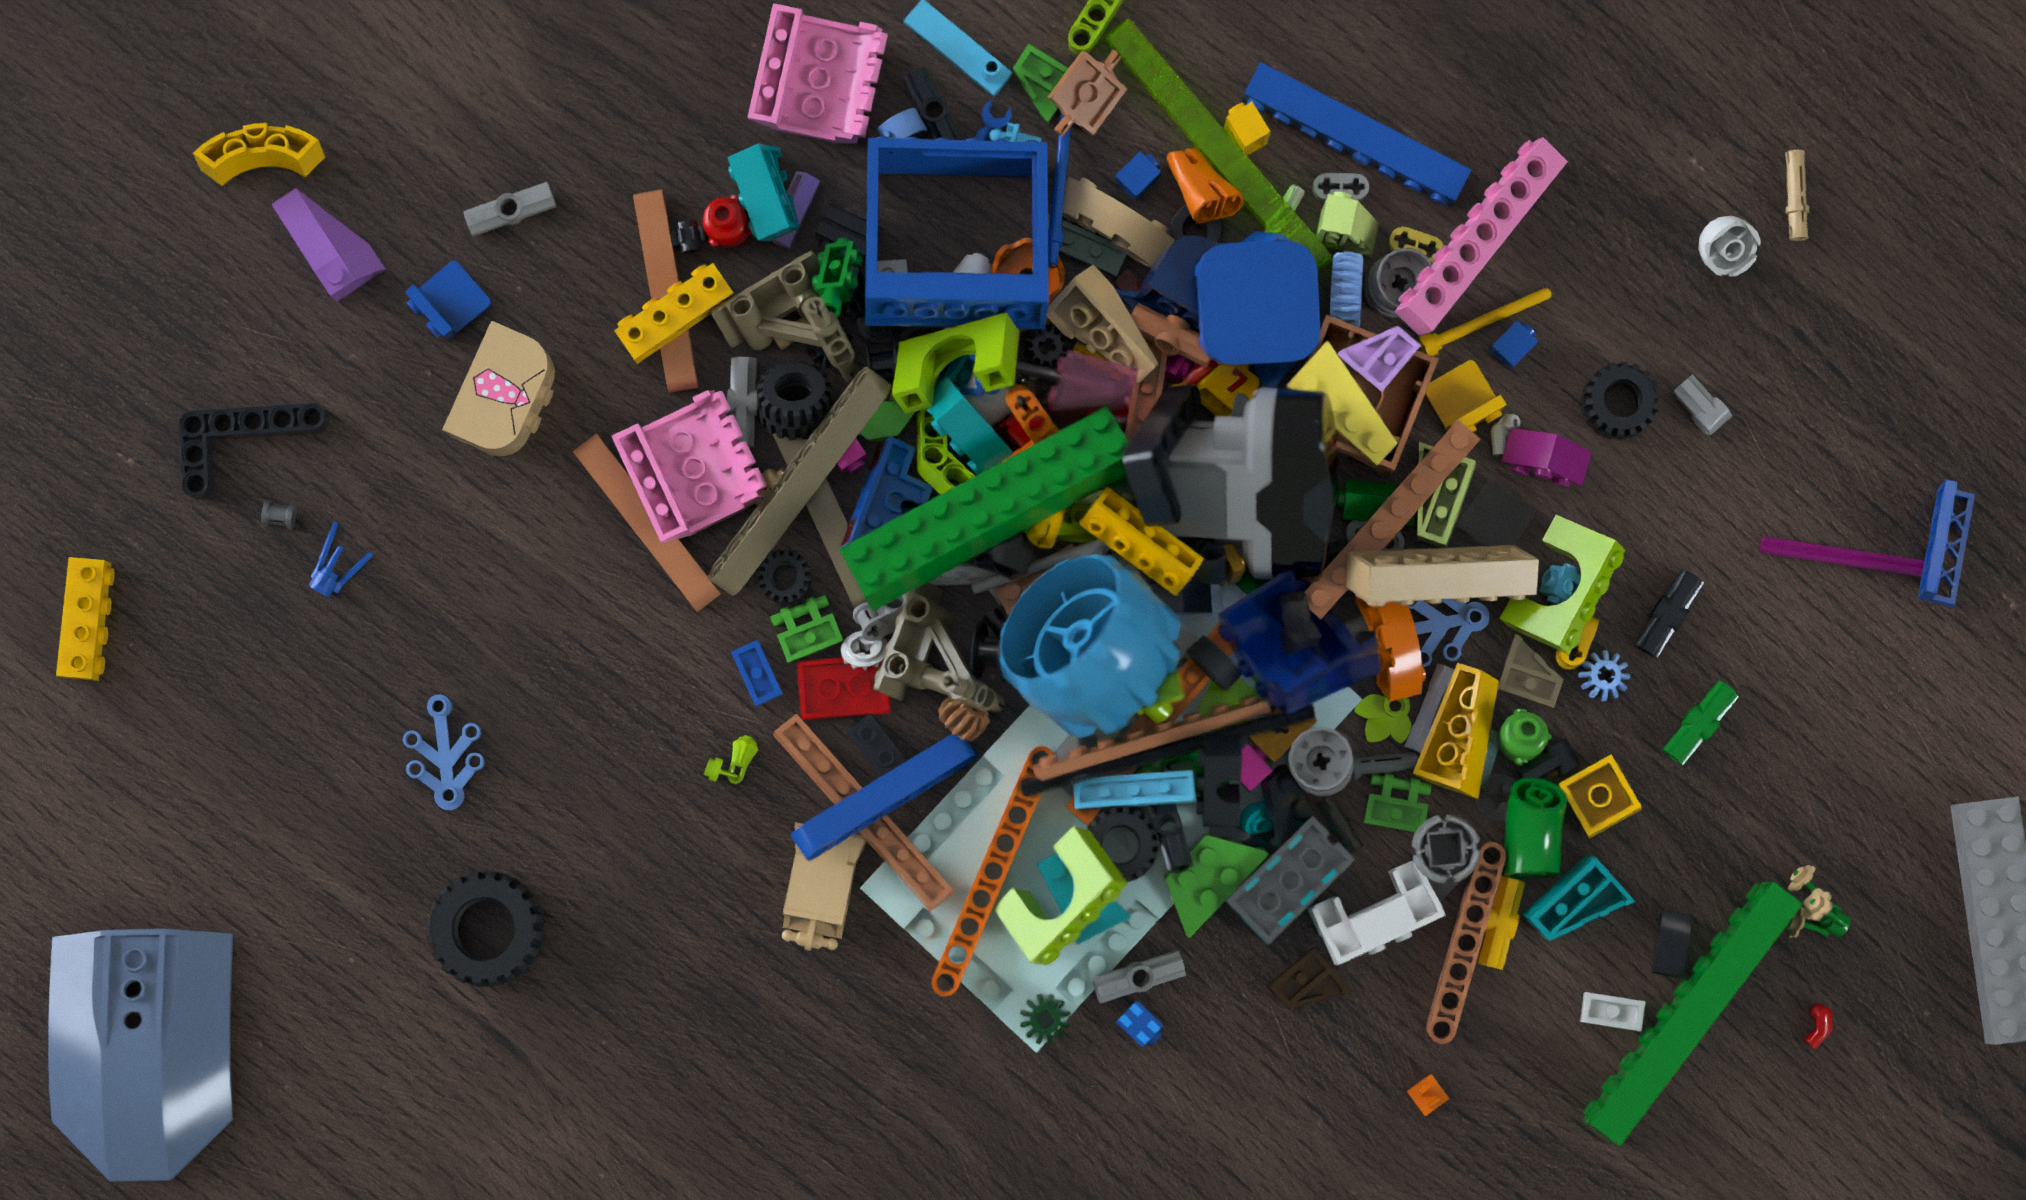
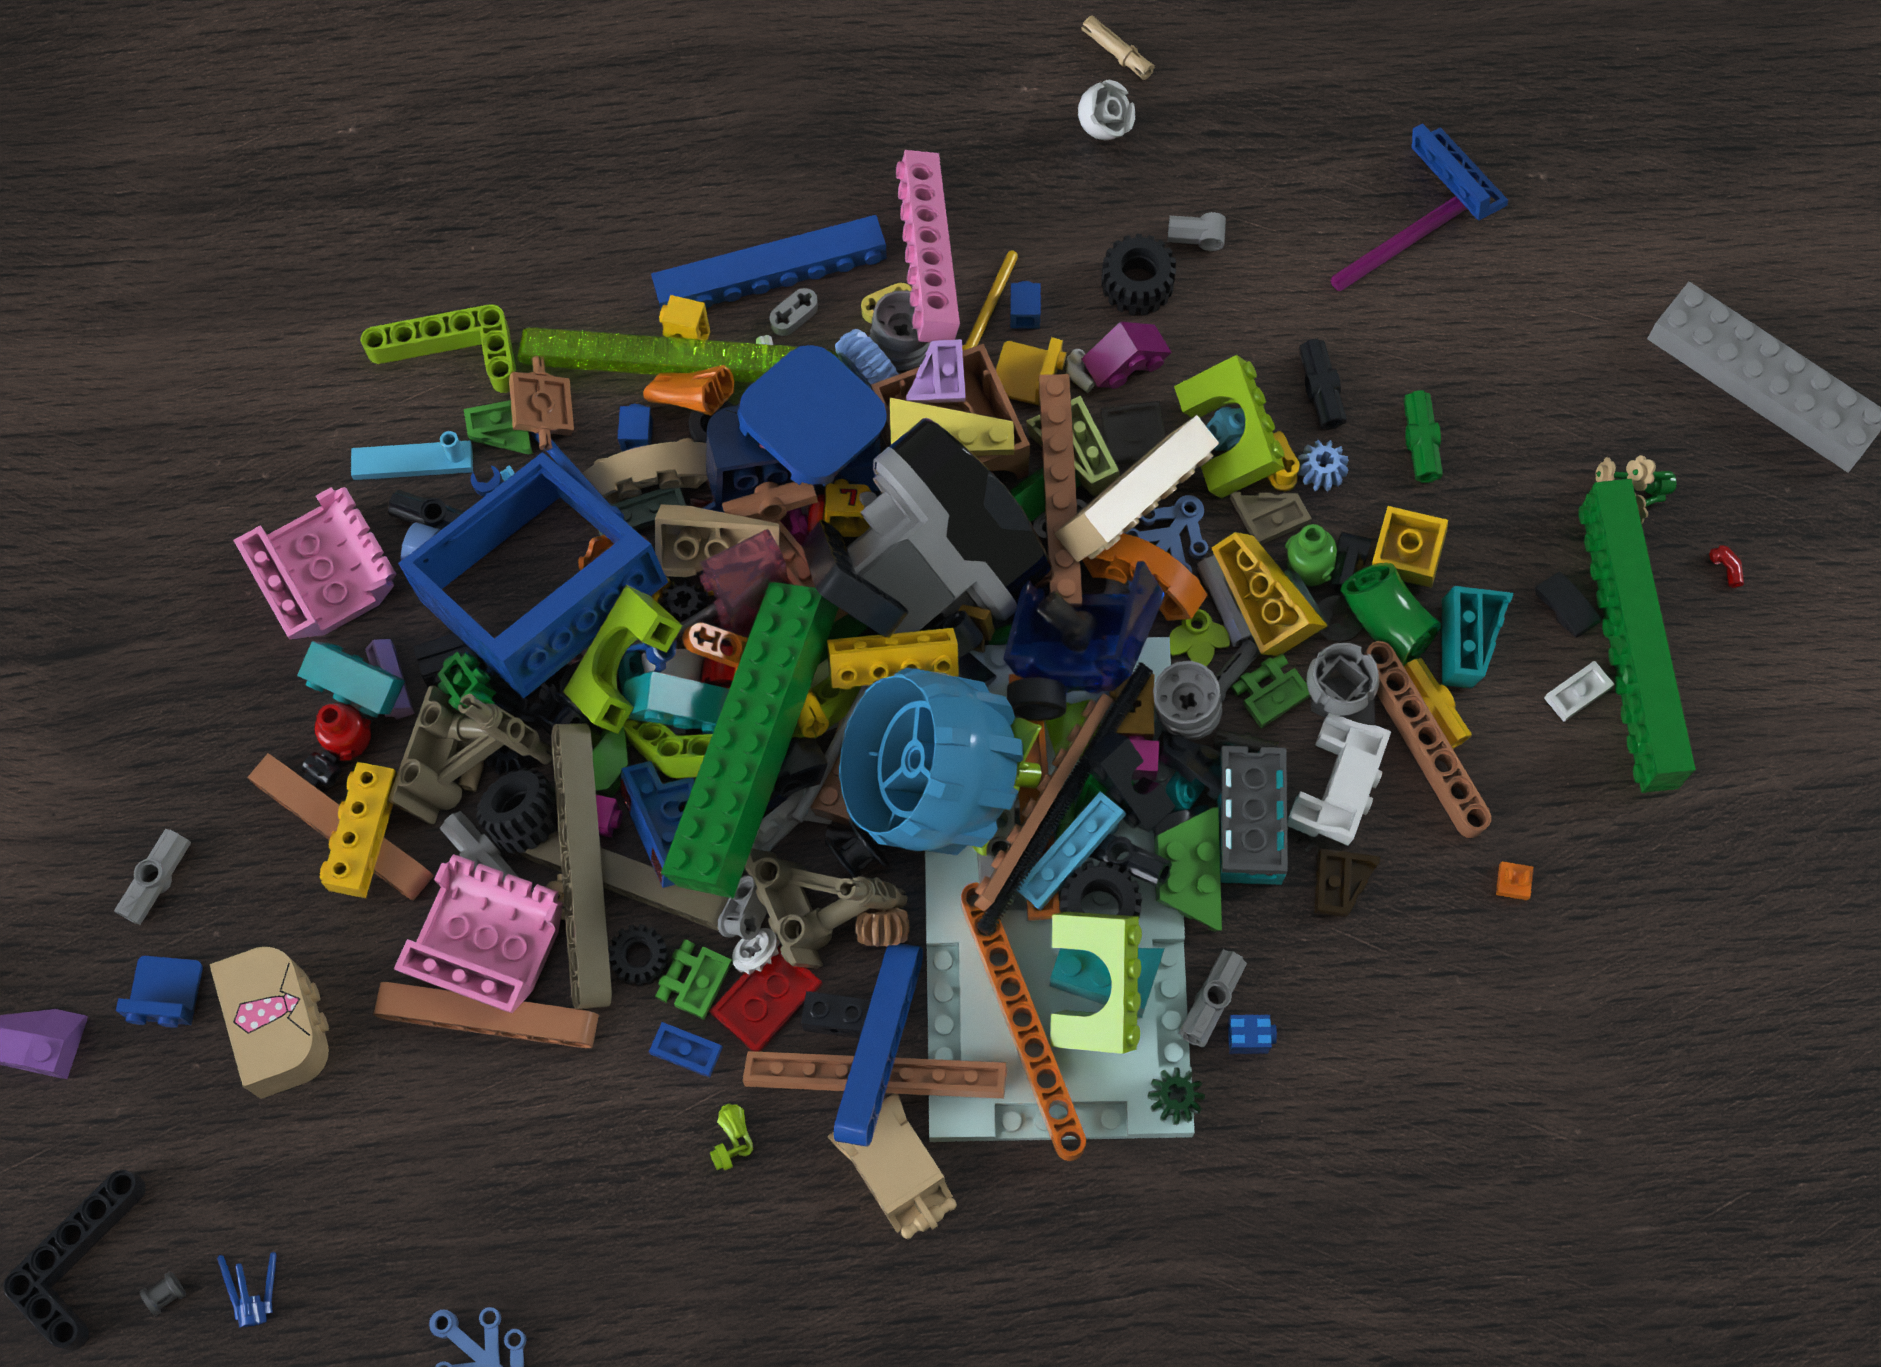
camera: 45 degrees left, 15 degrees down
(1347, 225) = (817, 319): yellowish green wedge -> none

